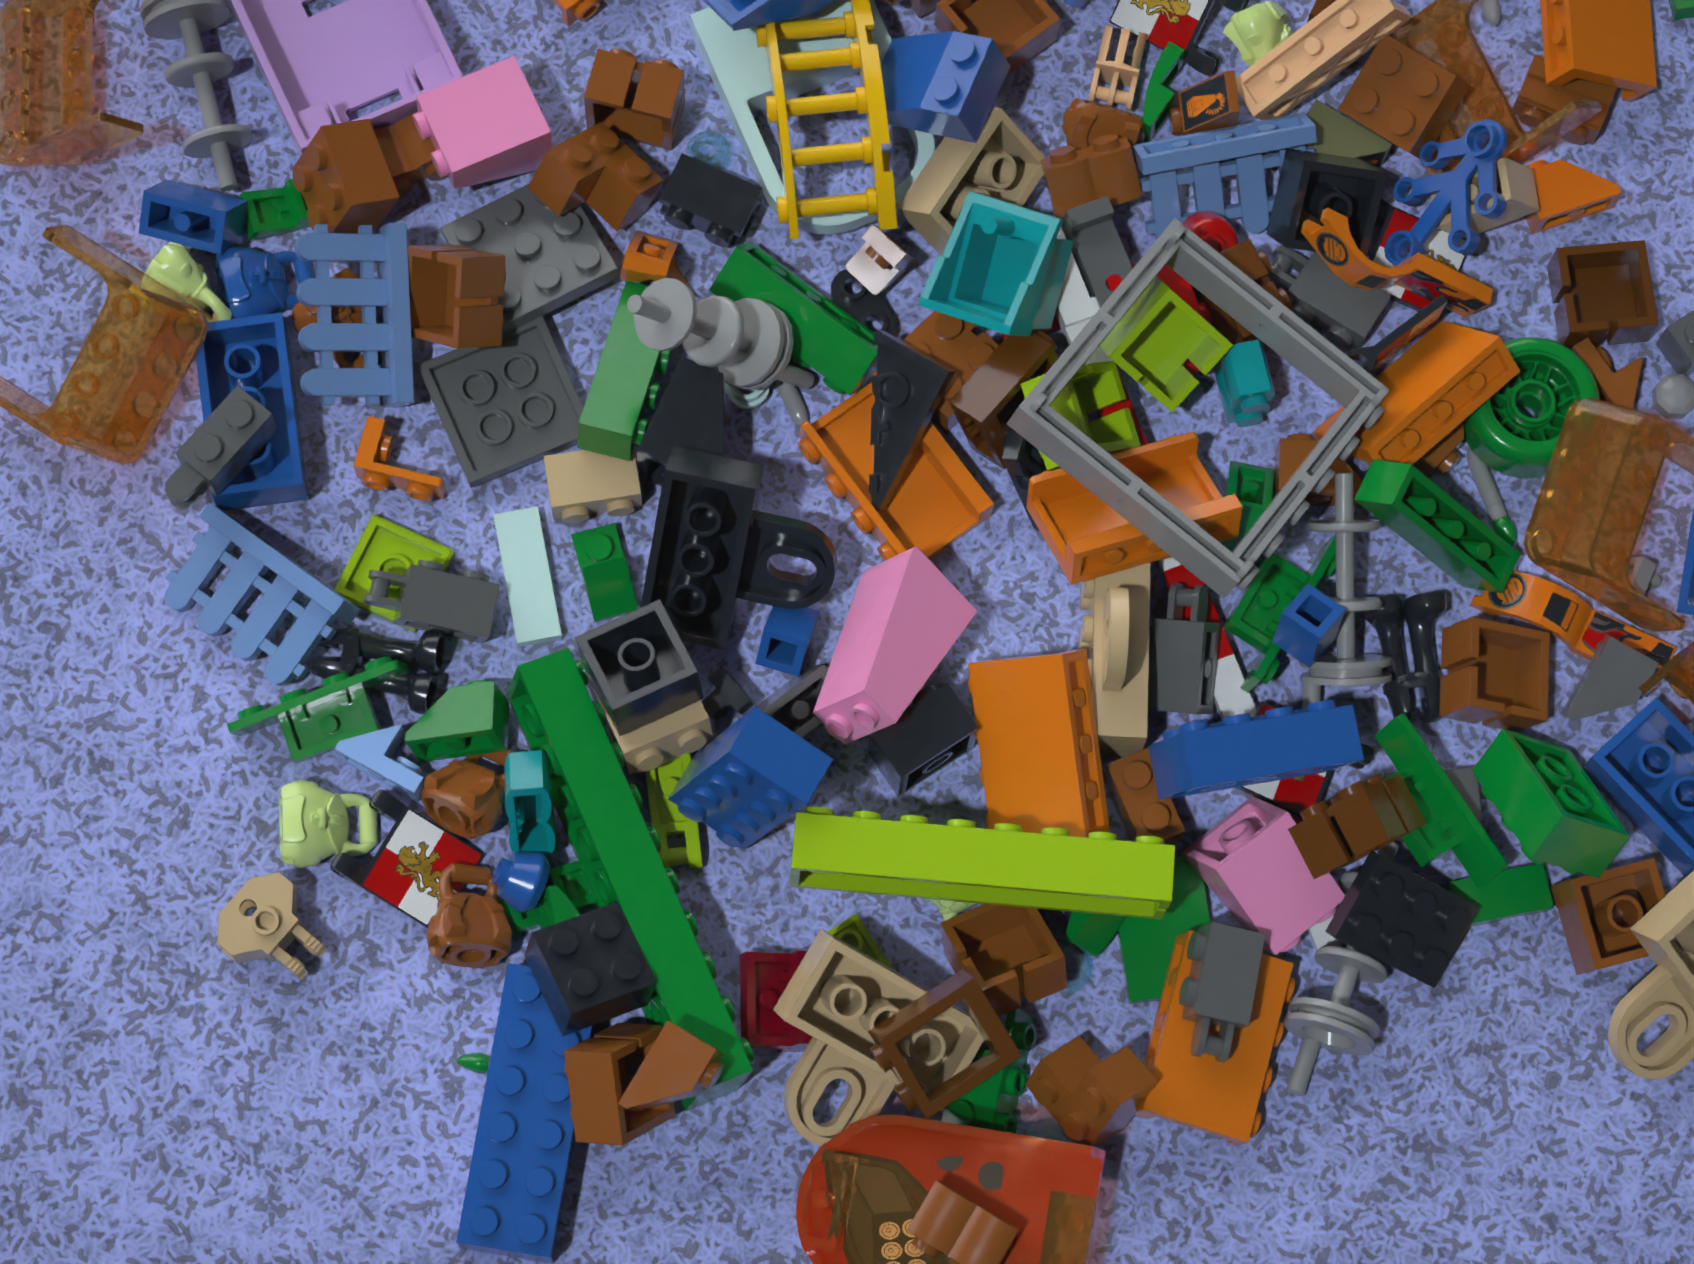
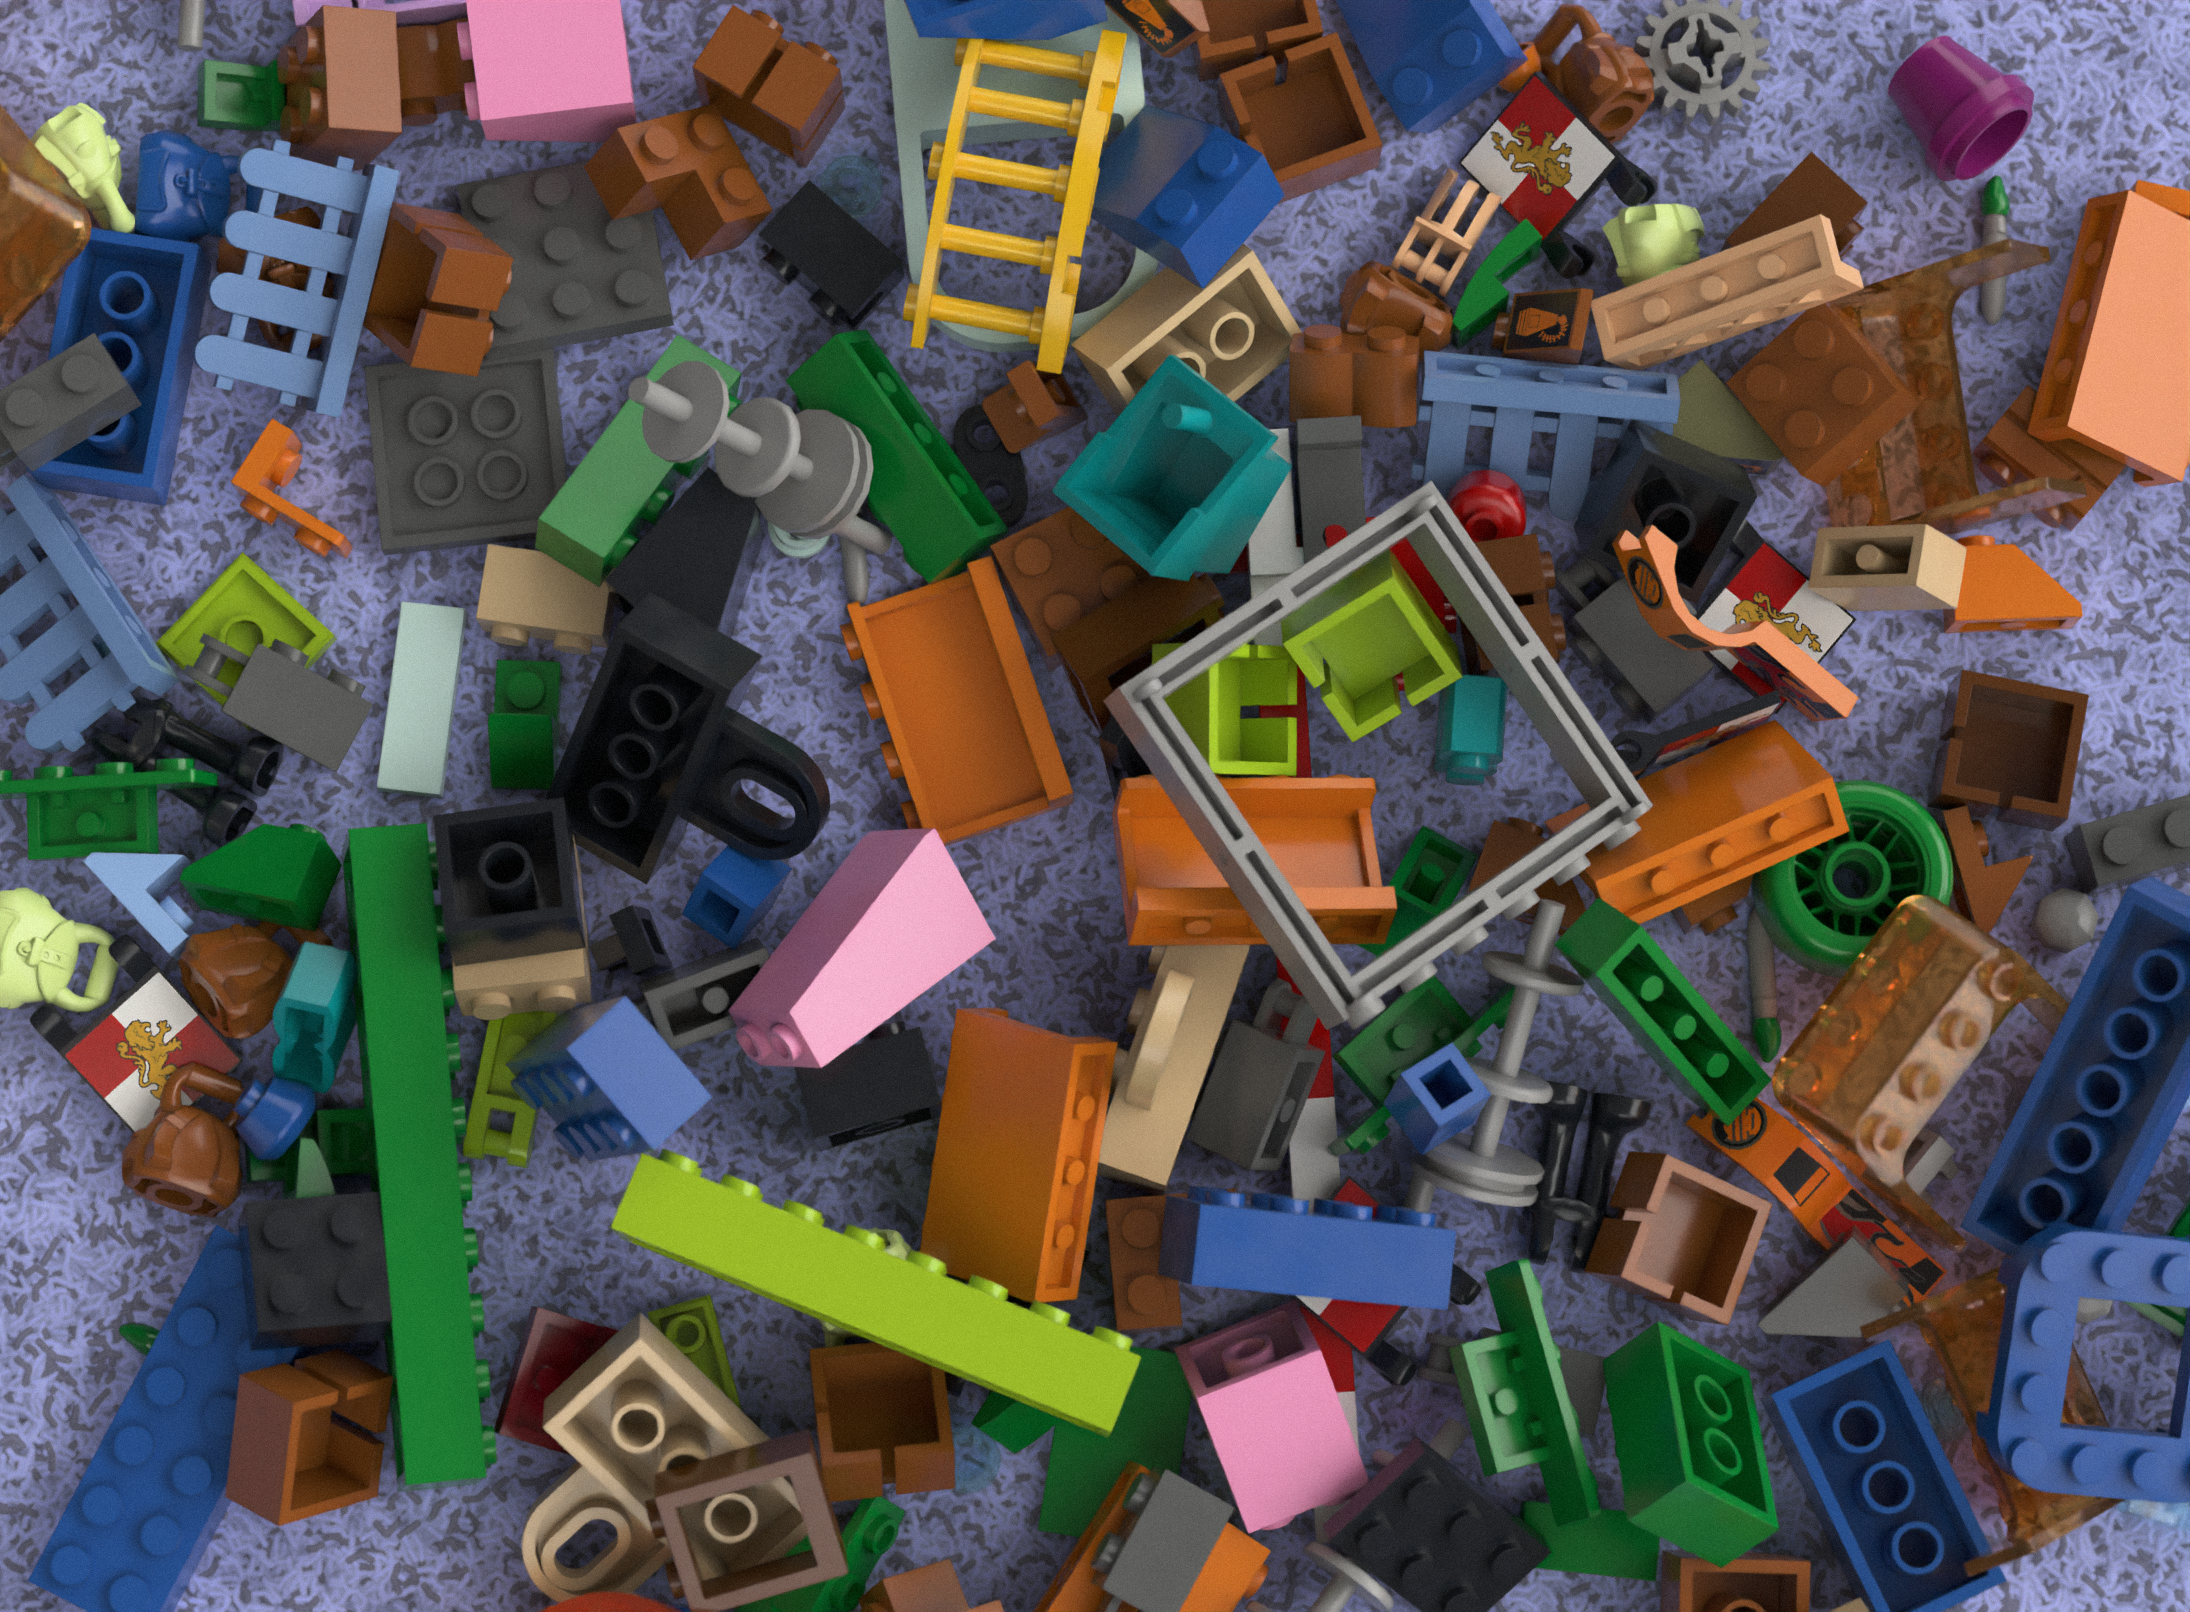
camera: 20 degrees right, 5 degrees up
(193, 216) = (127, 74): blue brick -> none
(650, 258) = (727, 318): orange slope -> none
(673, 1070) = (376, 1445): dark orange slope -> none
(905, 399) = (995, 616): black wing -> none
(1354, 823) = (1407, 1395): reddish brown piece -> none
(1452, 190) = (1842, 548): blue plant -> none

